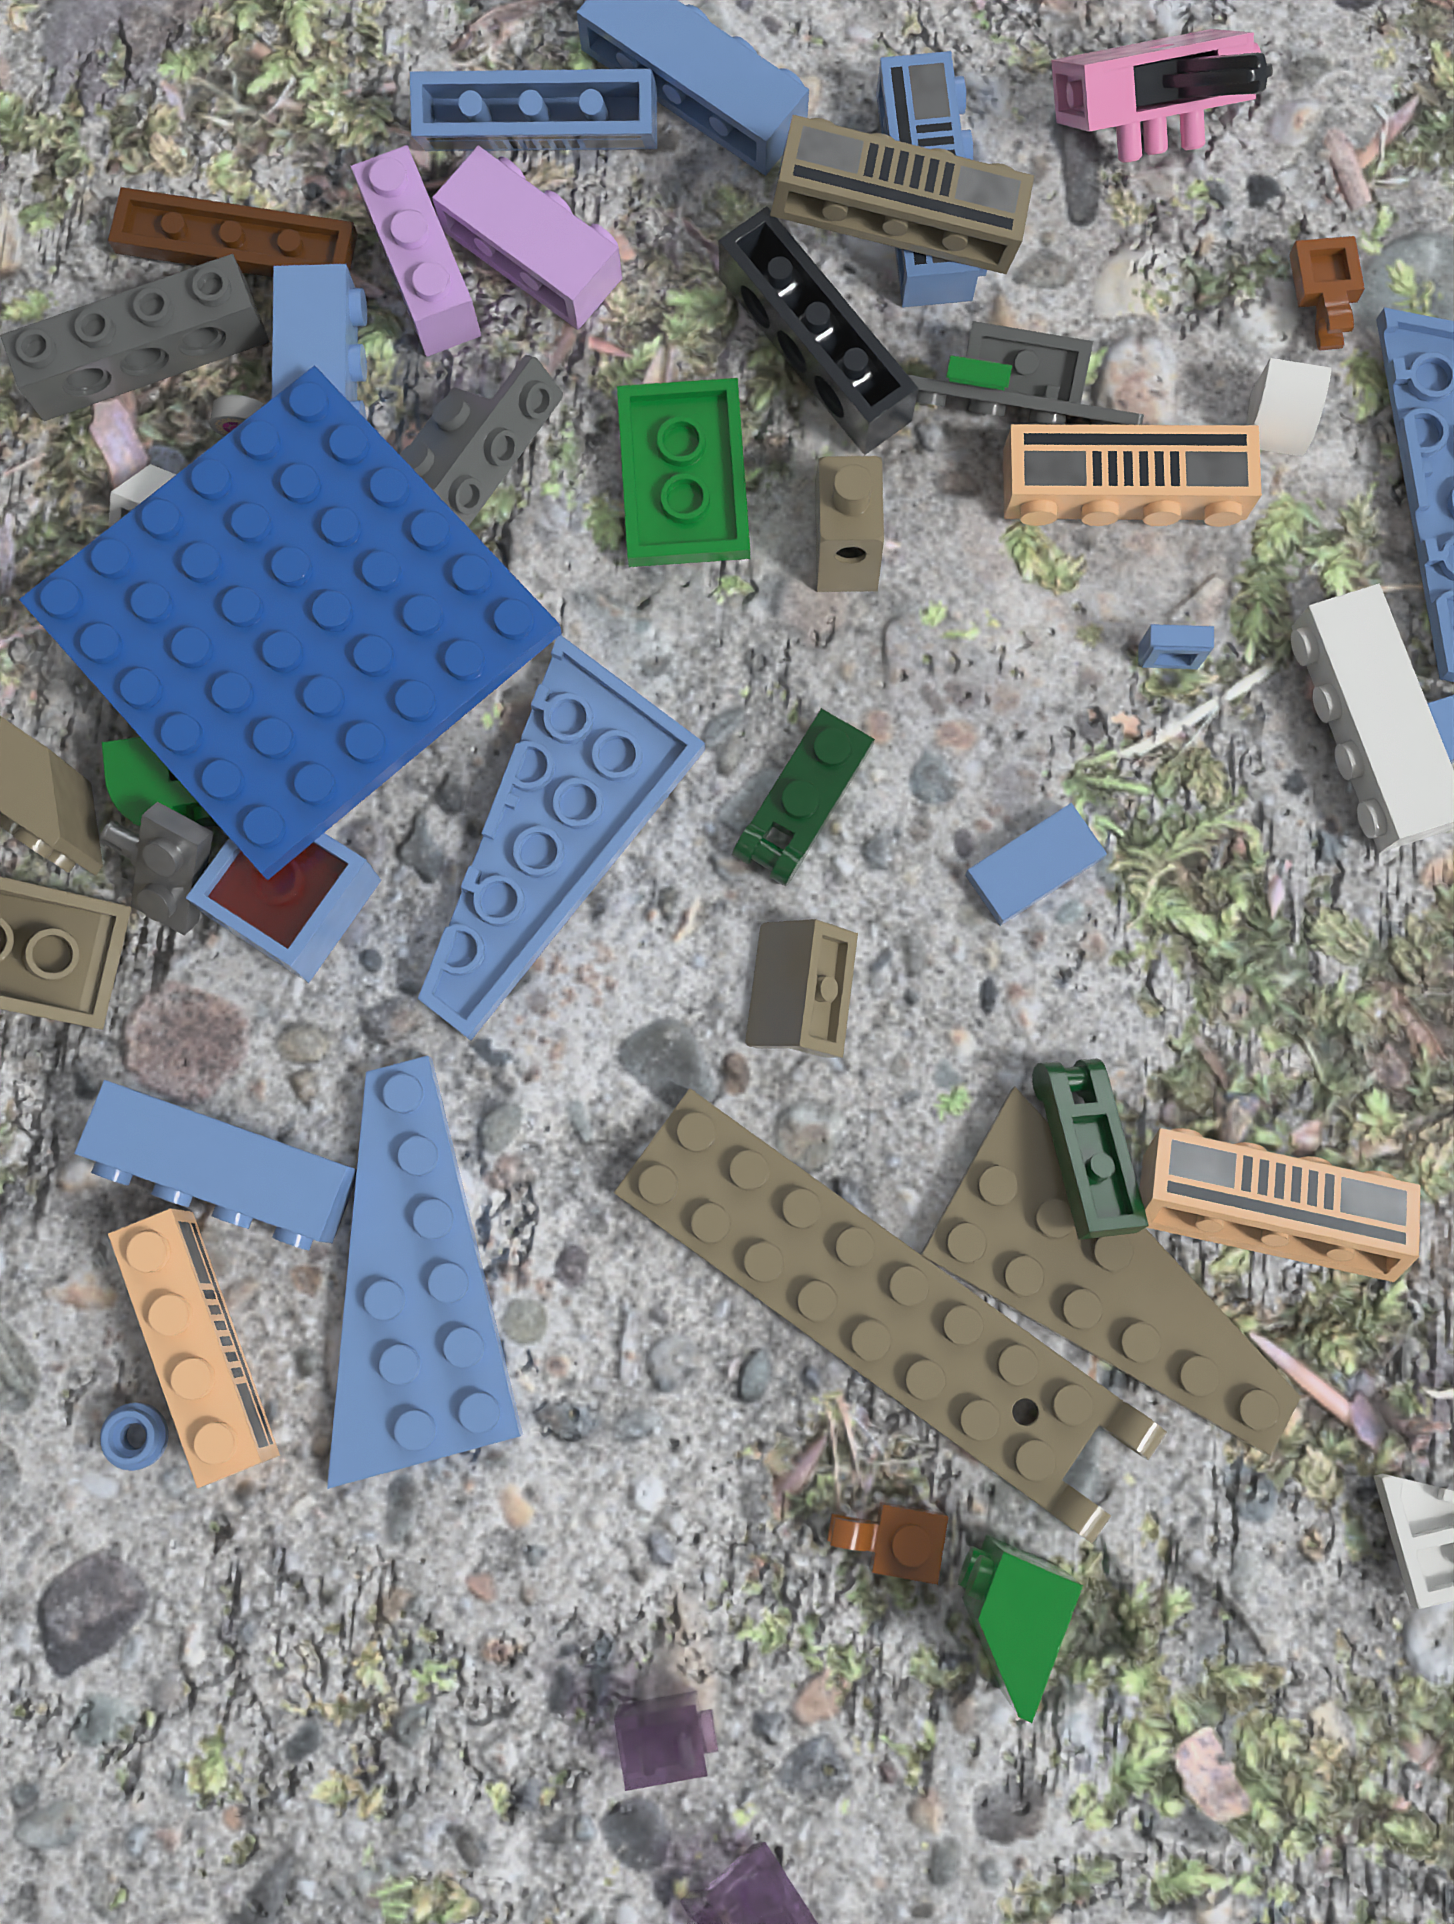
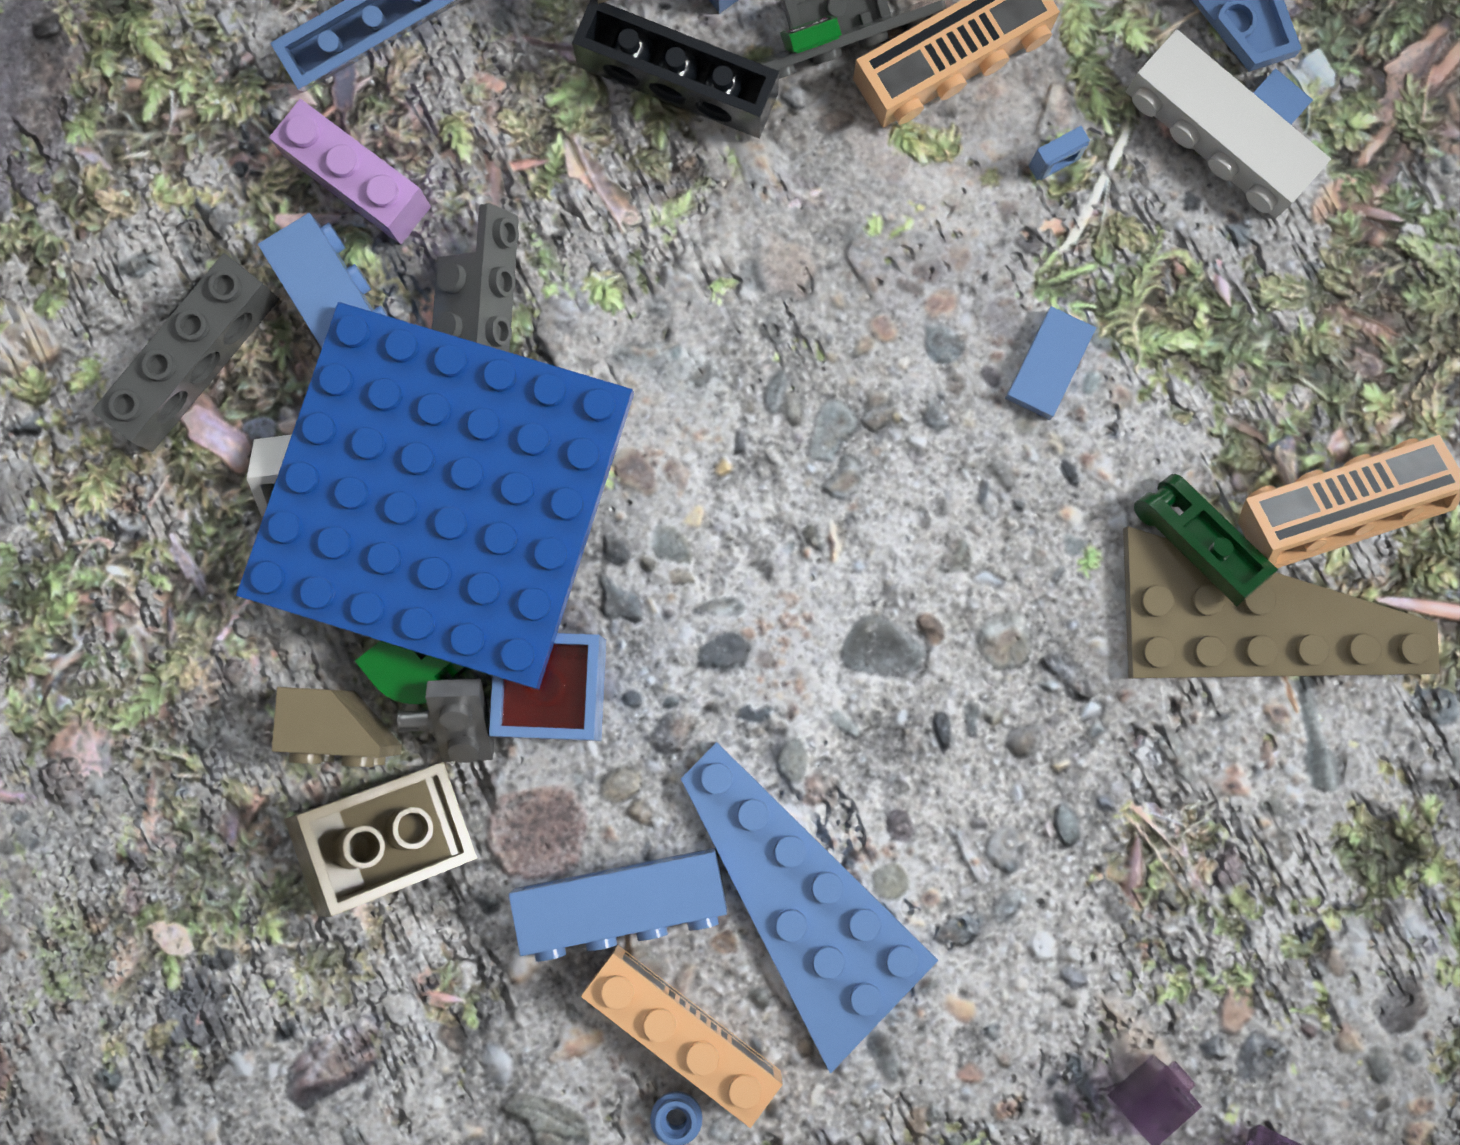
camera: 30 degrees left, 5 degrees up
(205, 230) = (202, 237): reddish brown plate -> none
(231, 411) = (297, 368): light grey tile -> none
(529, 236) = (424, 114): lavender brick -> none
(566, 809) = (705, 506): medium blue wing -> none
(683, 472) = (641, 225): green plate -> none
(802, 987) = (942, 544): dark tan panel -> none
(804, 795) = (864, 407): dark green plate -> none
(849, 516) = (781, 192): dark tan torso -> none
(879, 1306) = (1121, 728): dark tan hinge -> none
(902, 1541) = (1229, 876): dark orange plate -> none
(1019, 1616) = (1345, 879): green slope -> none

